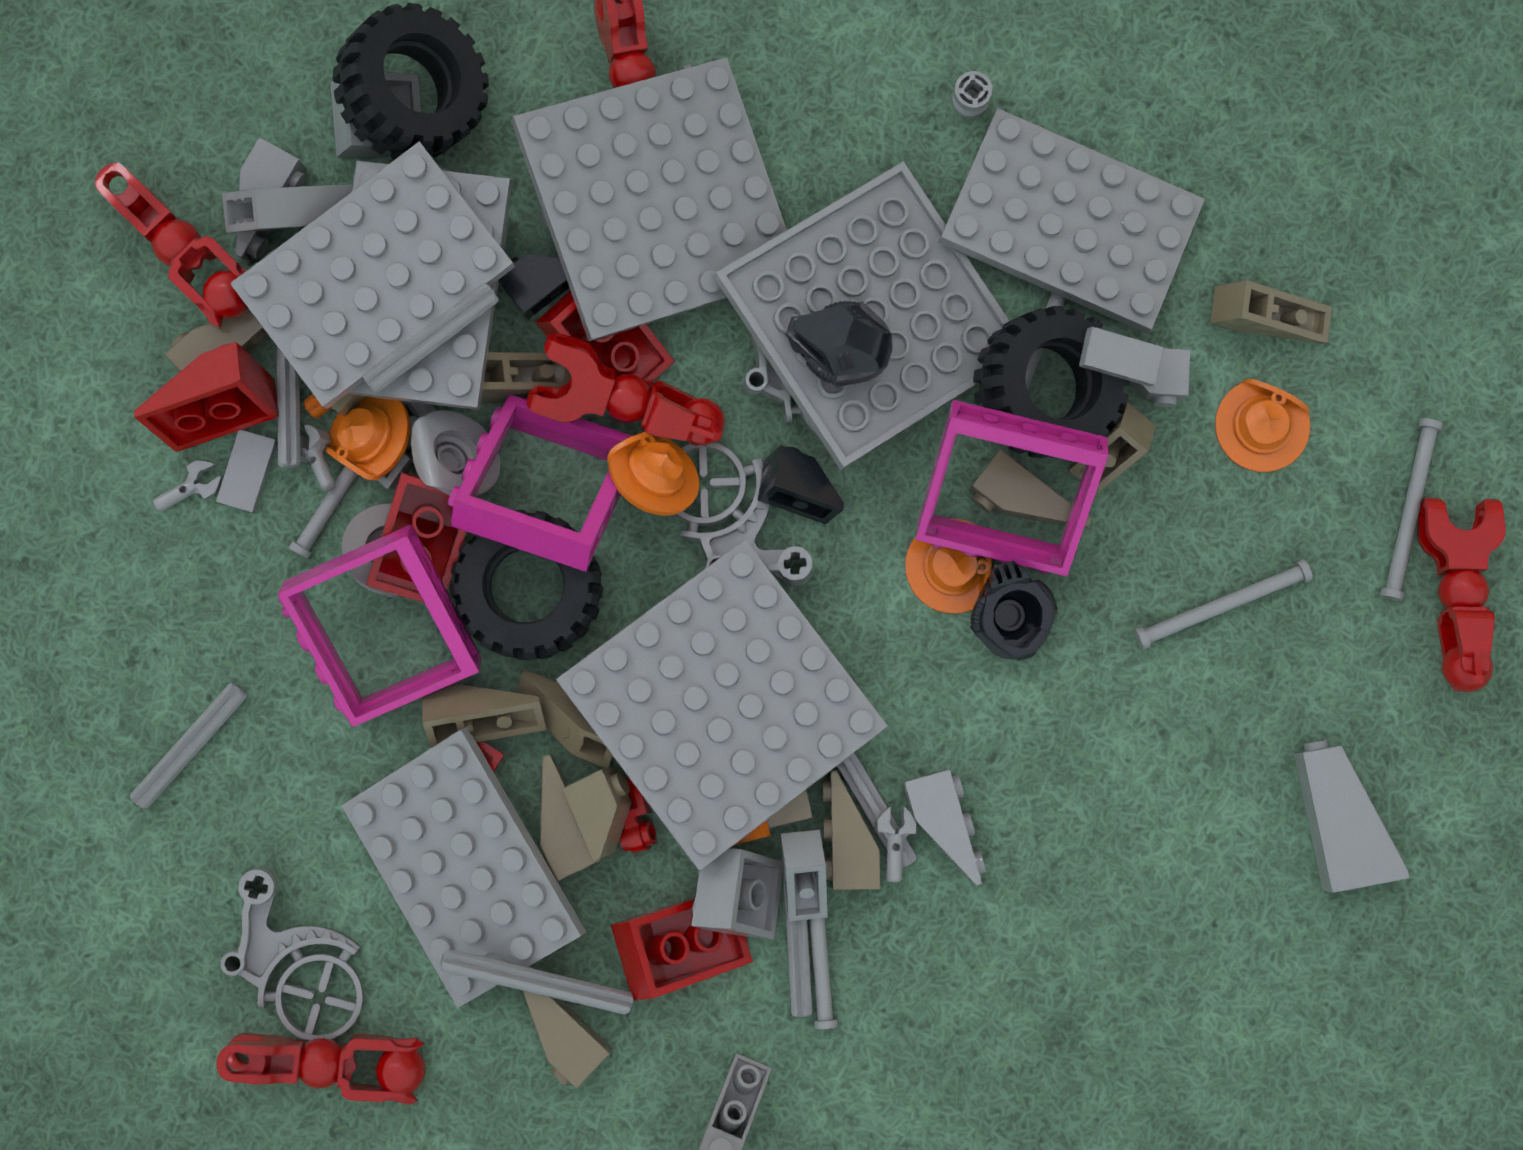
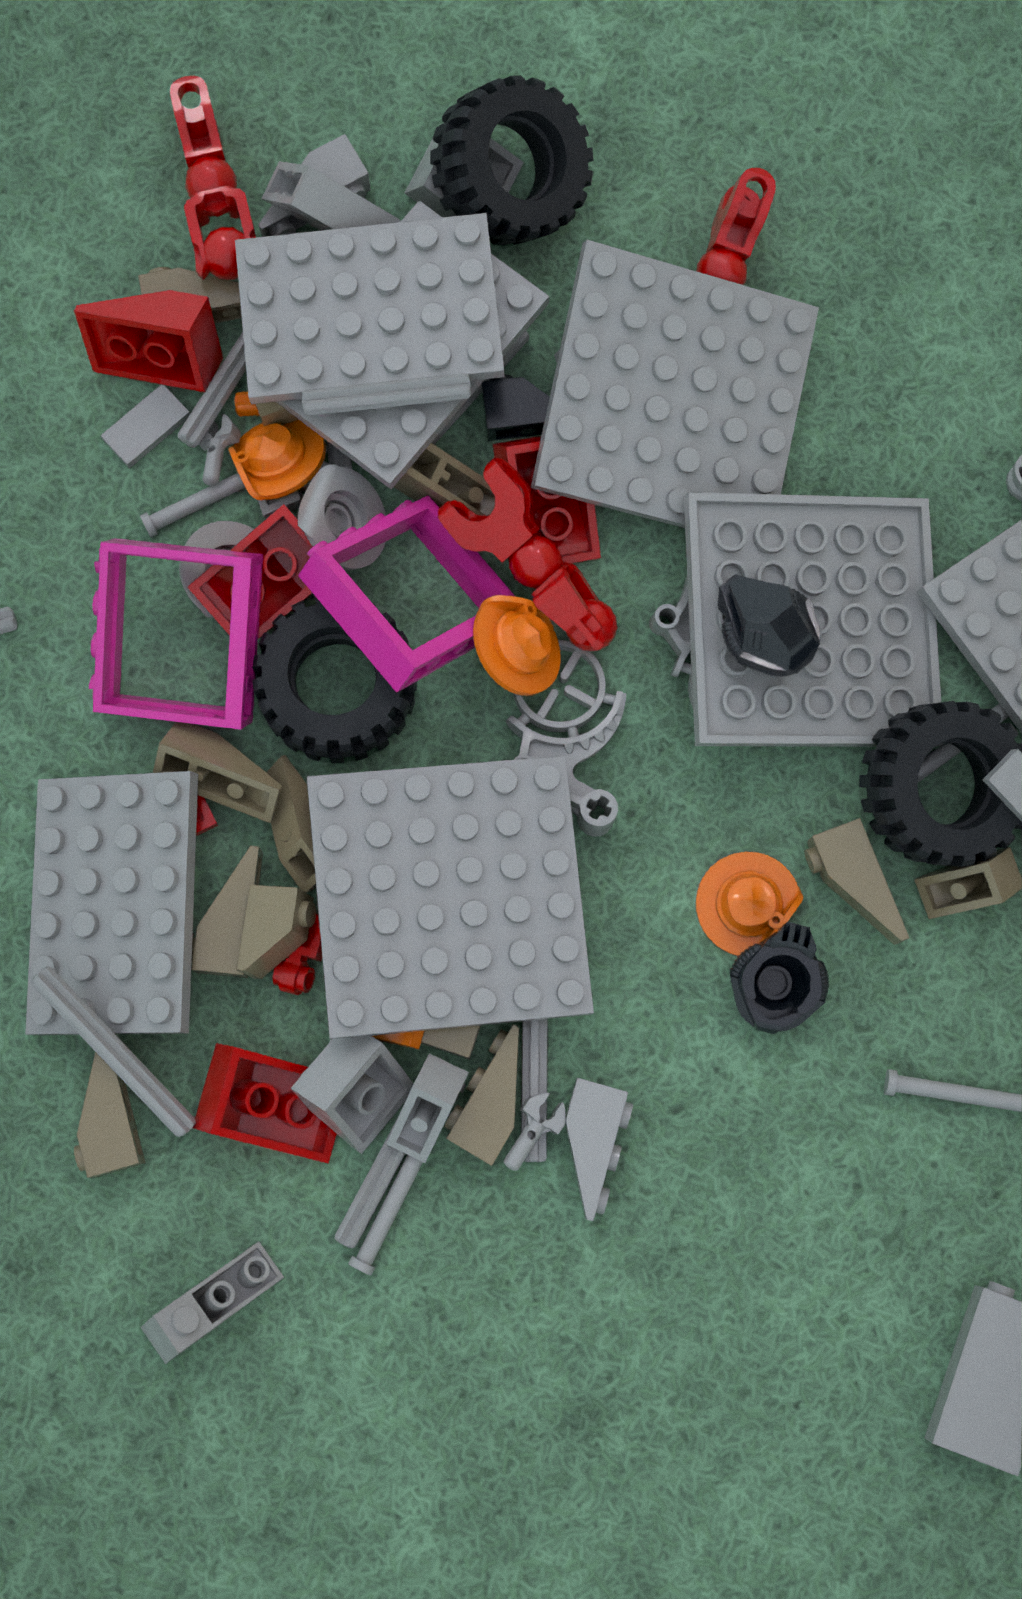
camera: 30 degrees right, 5 degrees down
(190, 486) = (86, 409): light grey bar -> none
(798, 485) = (646, 739): black slope -> none
(1026, 435) = (894, 813): dark pink window -> none

